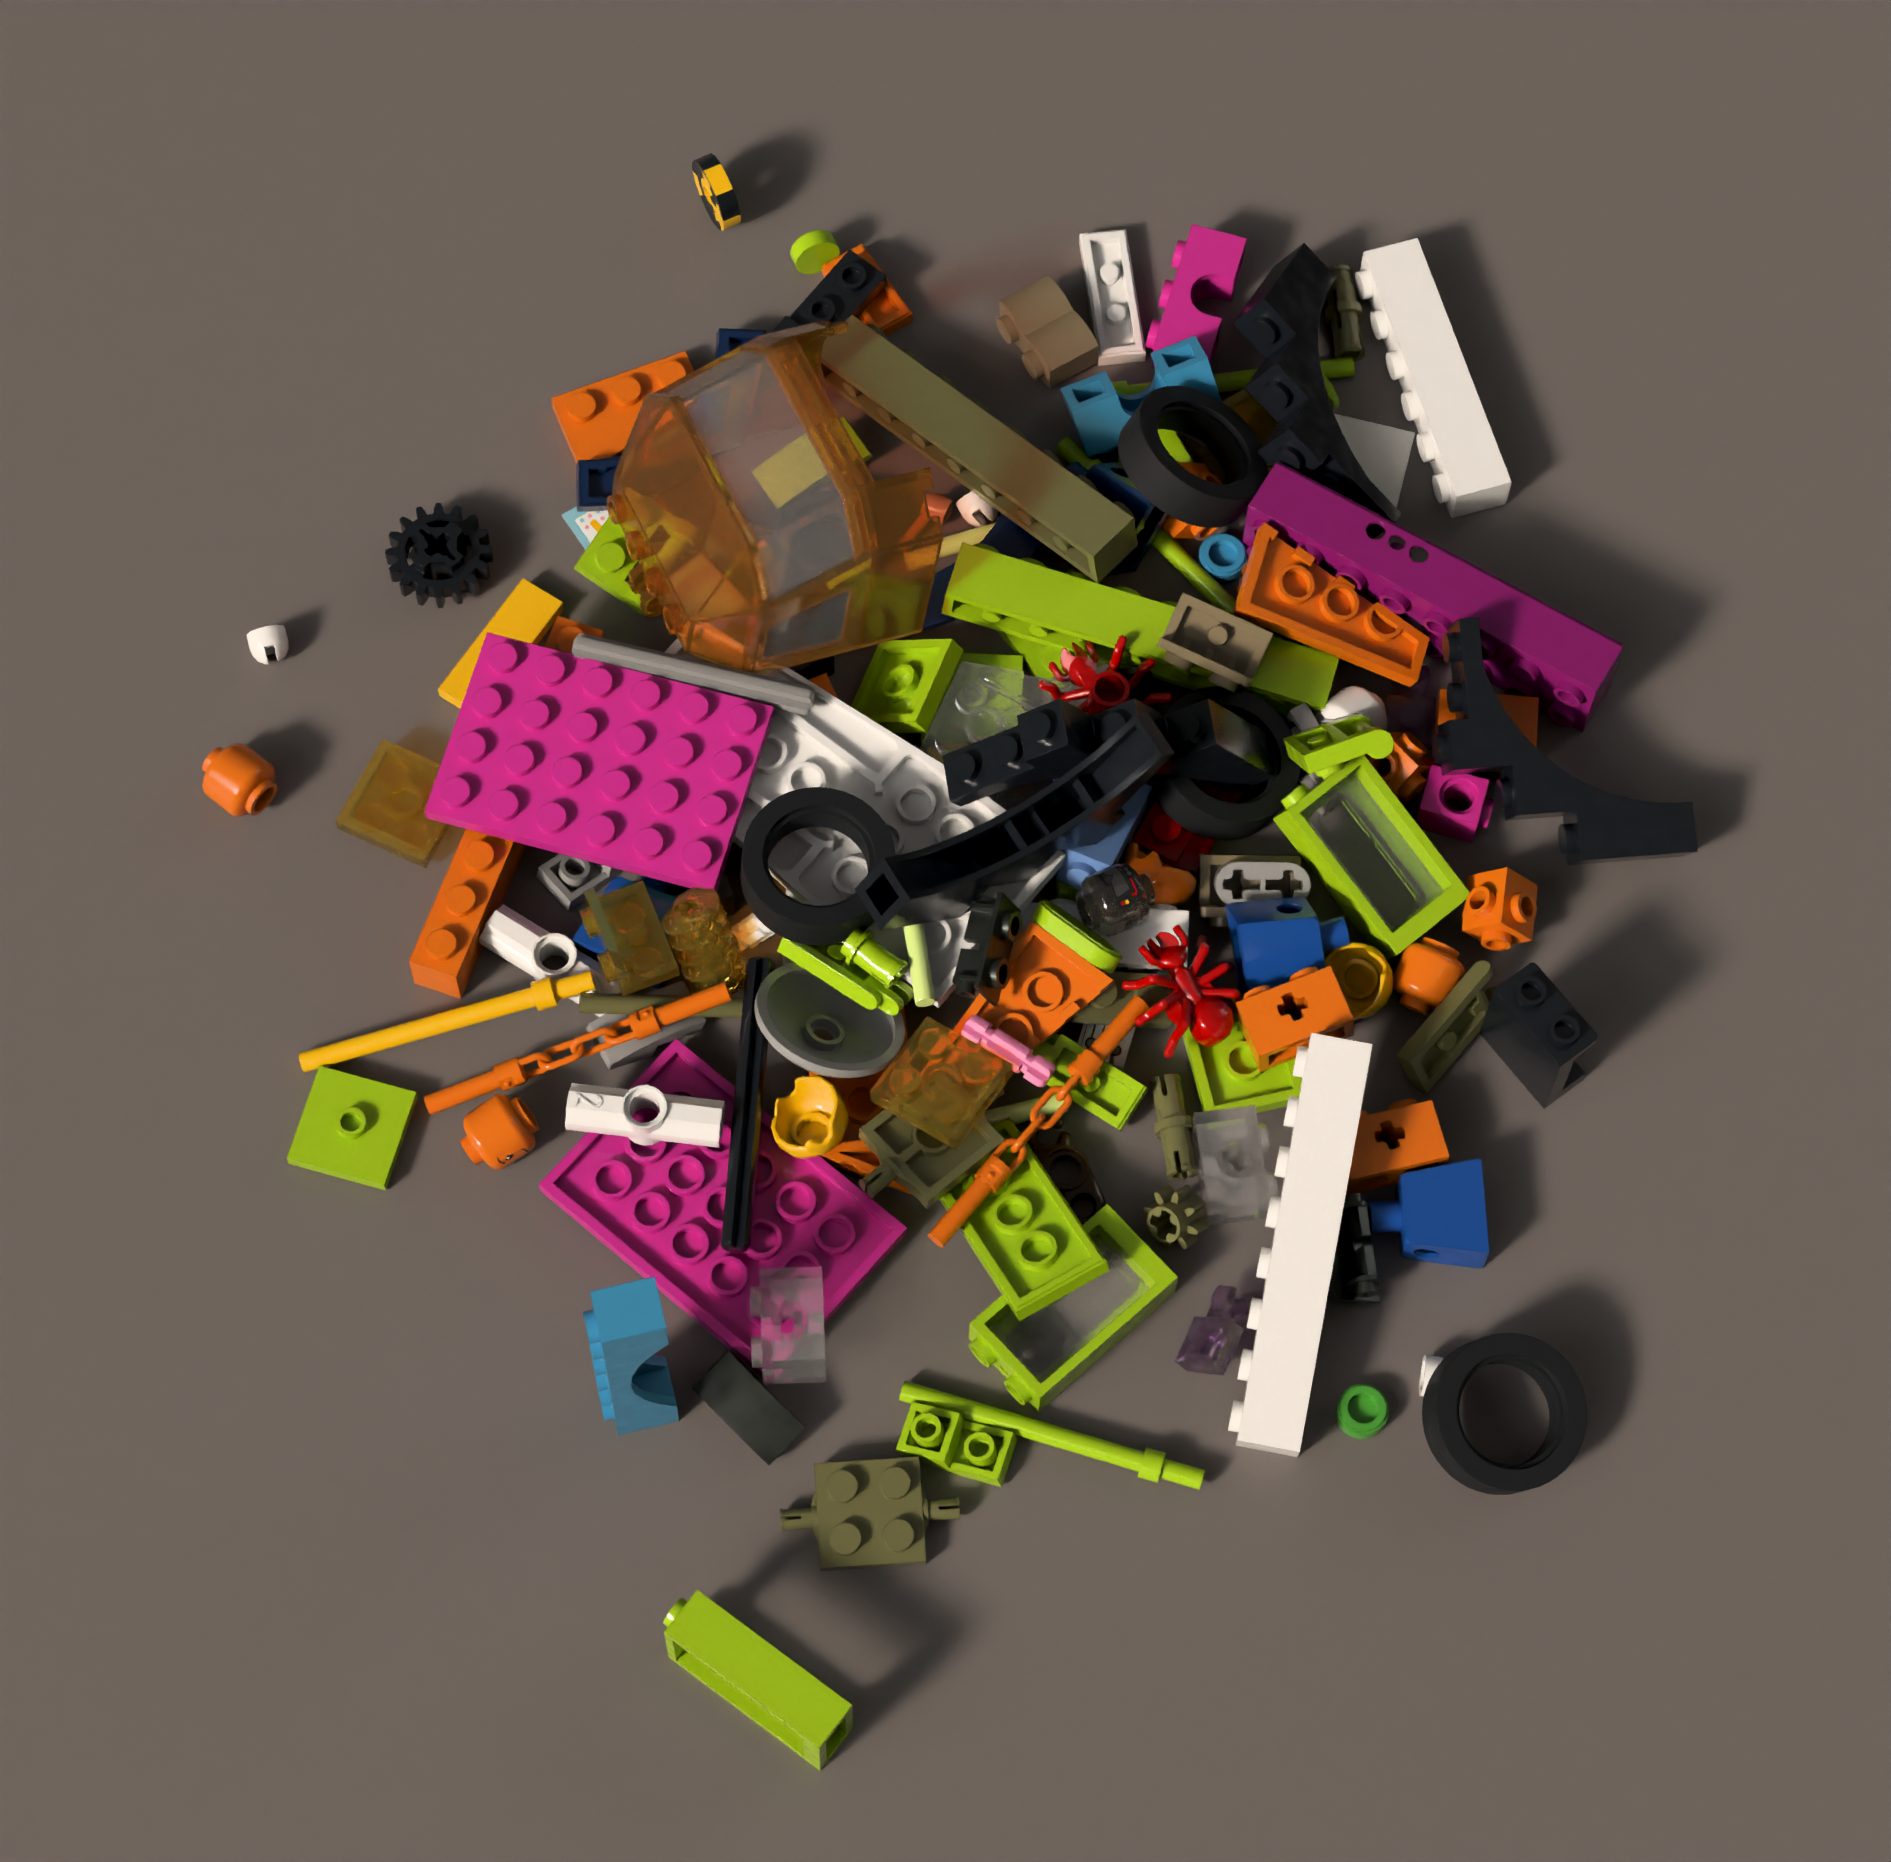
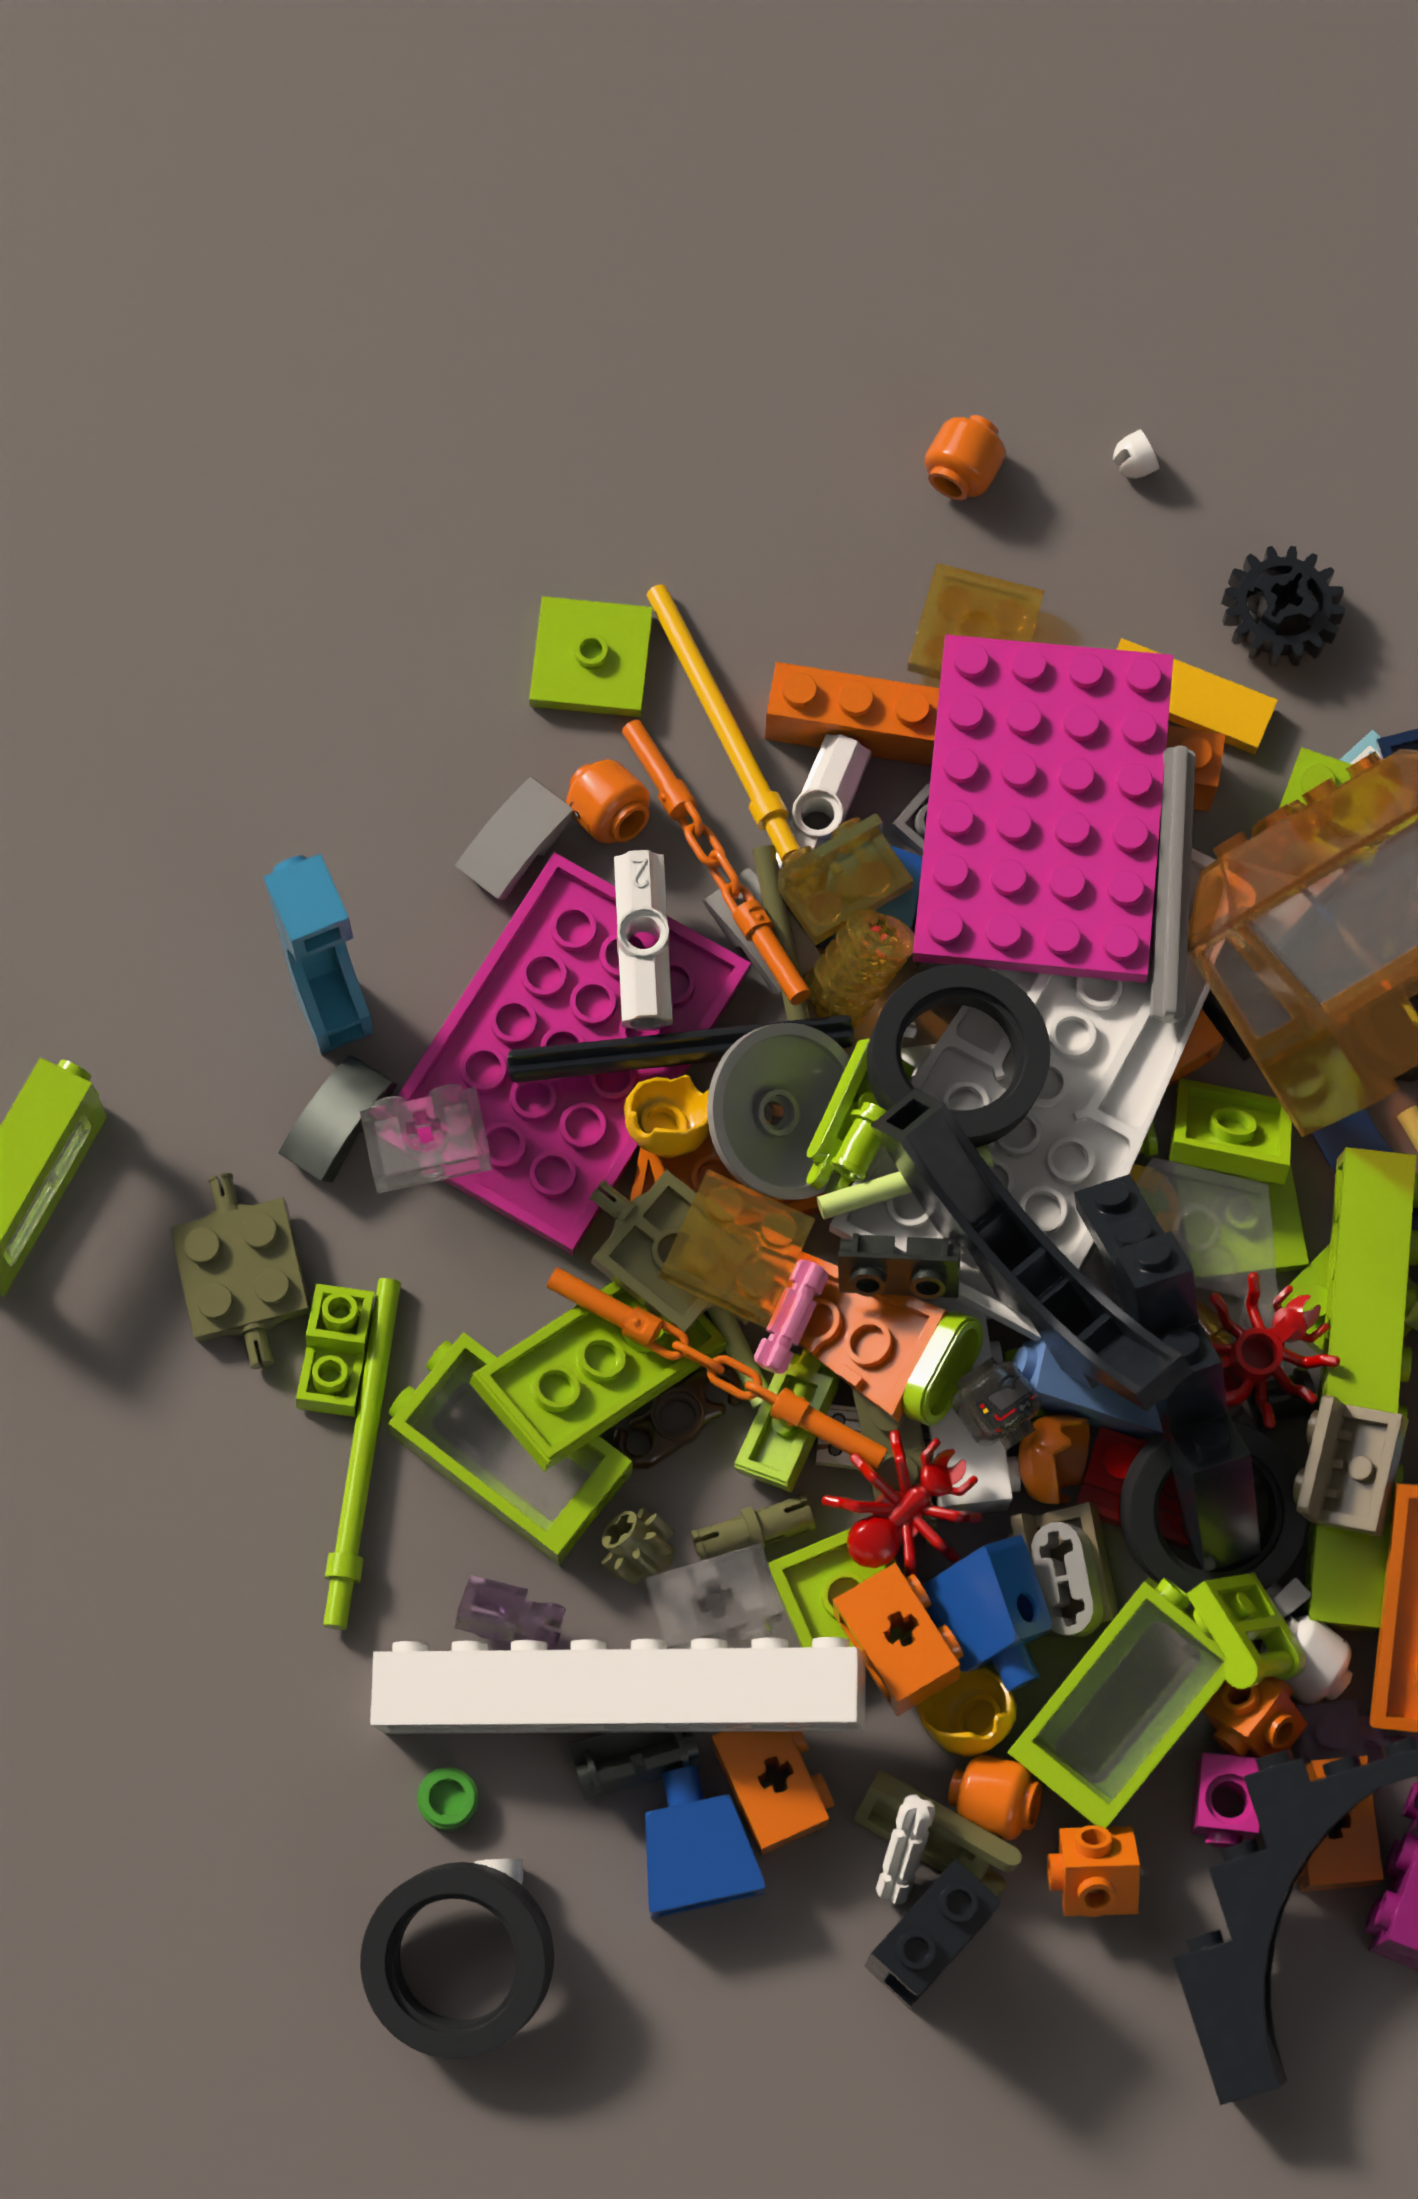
camera: 80 degrees right, 5 degrees up
(516, 1216) = (514, 837): none -> light grey slope
(1463, 1048) = (905, 1849): none -> white axle

